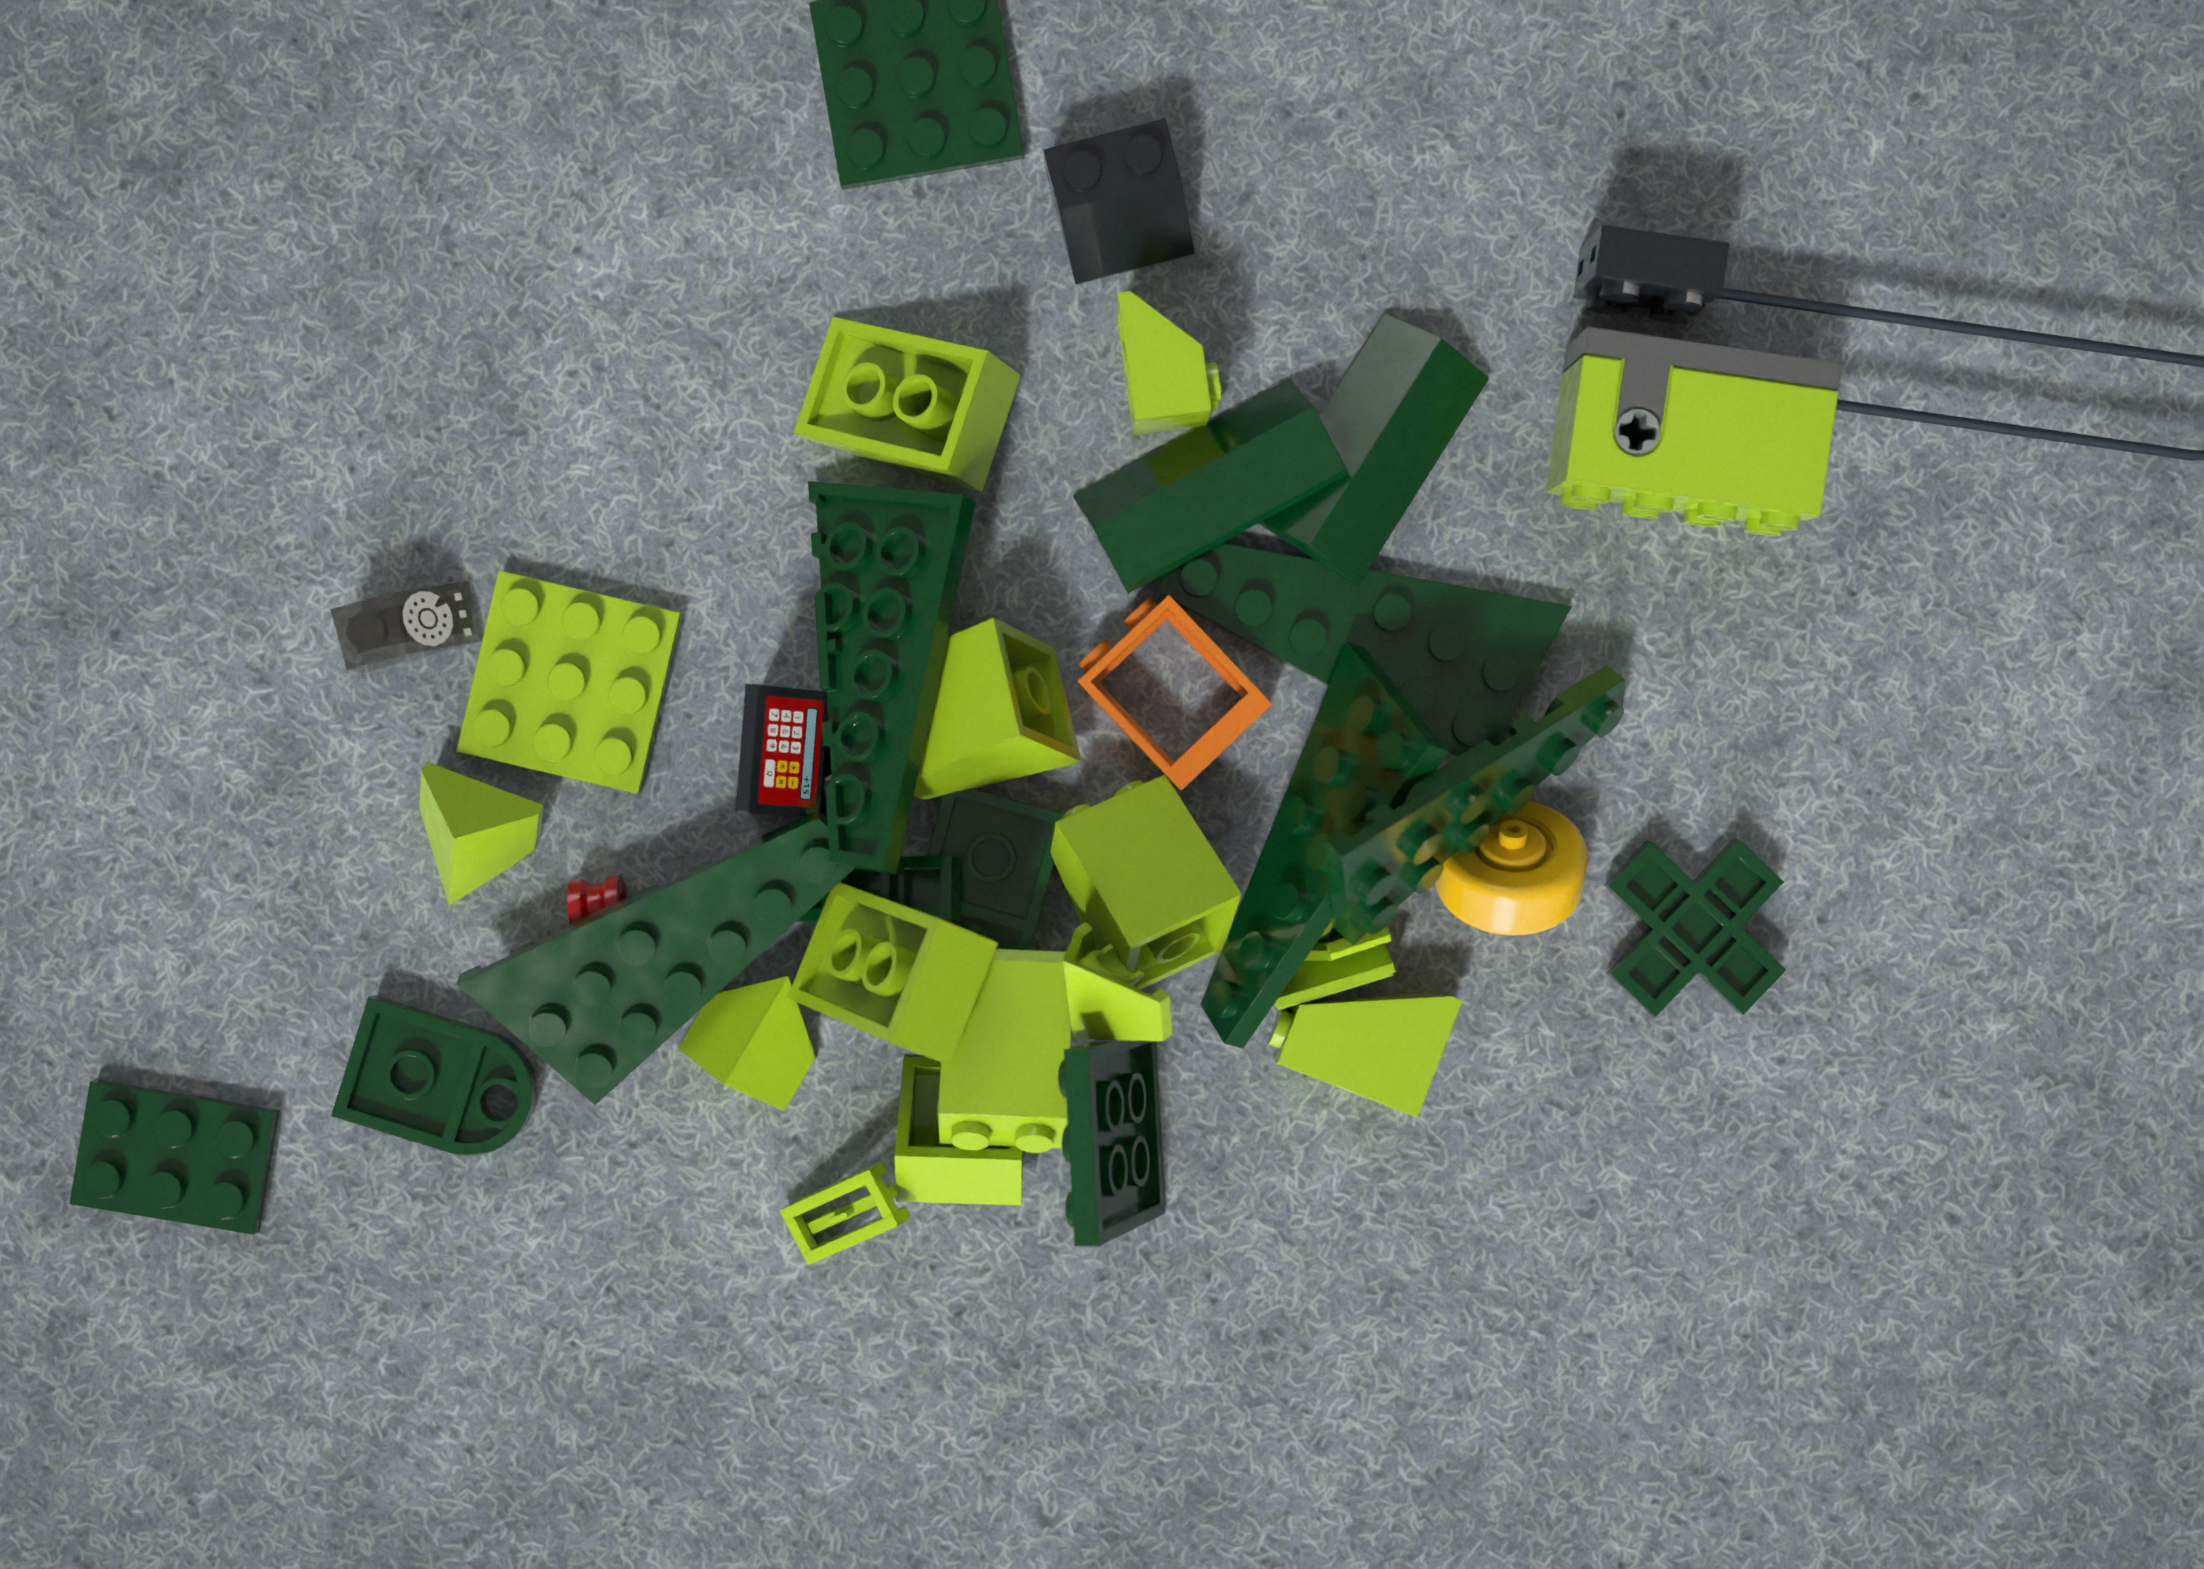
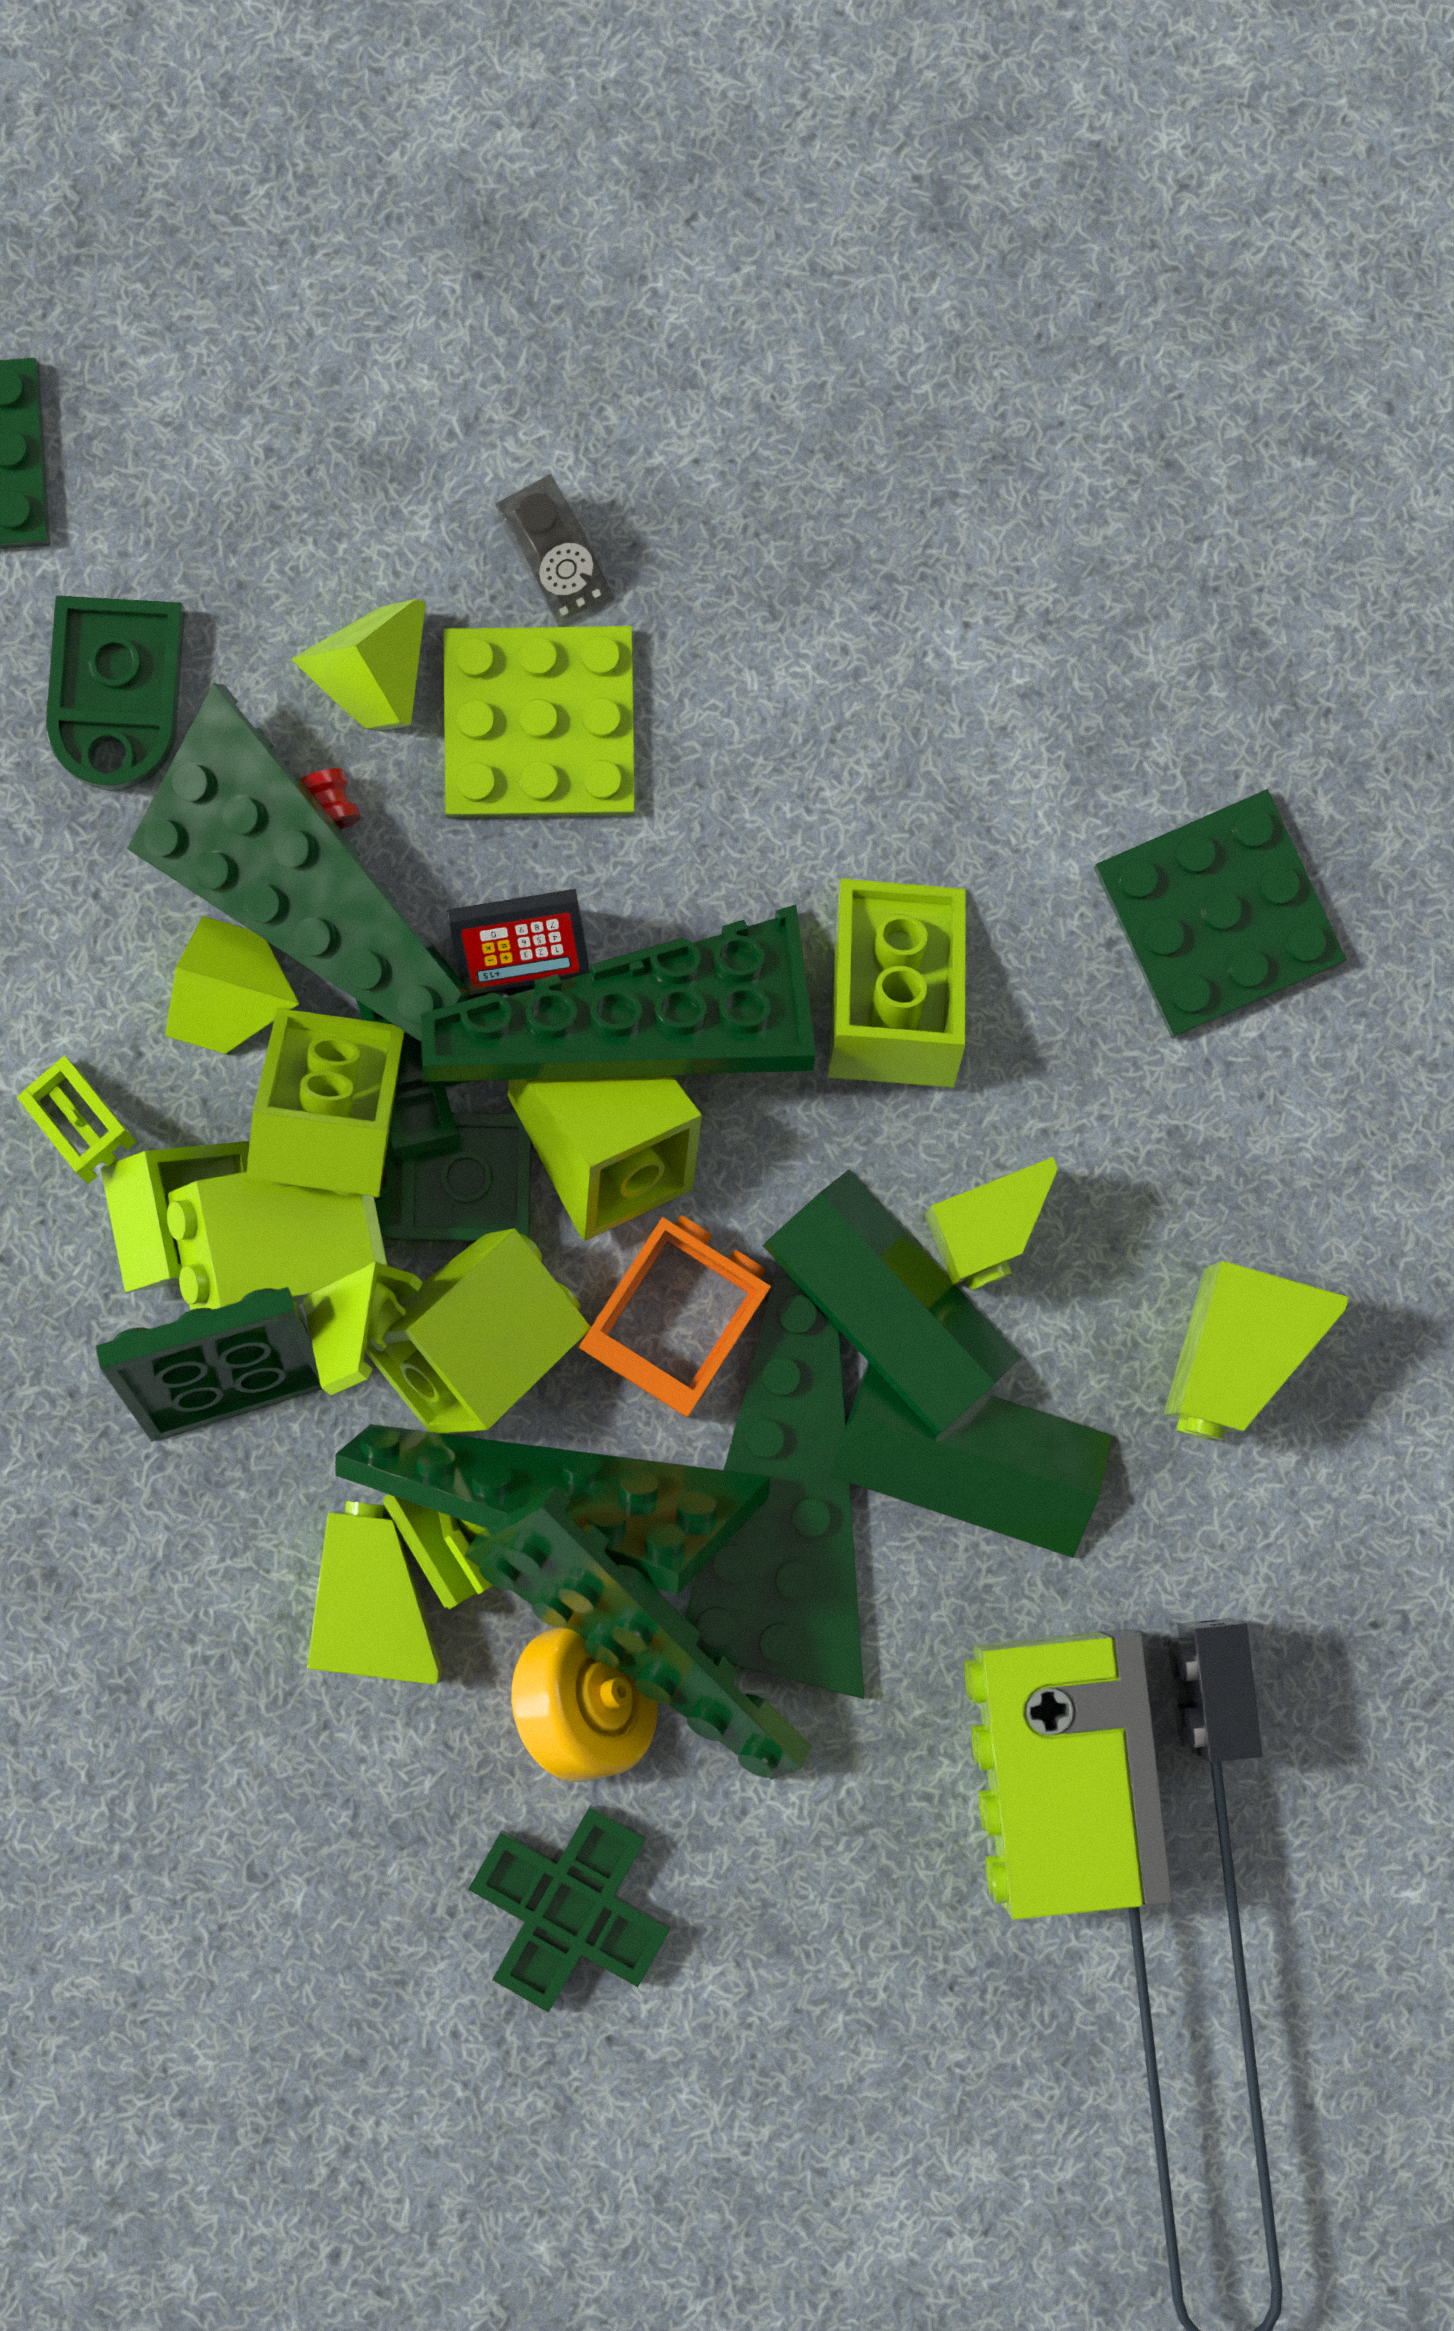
camera: 70 degrees right, 5 degrees down
(1119, 201) = (1150, 1141): black slope -> none
(1338, 163) = (1243, 1346): none -> lime slope

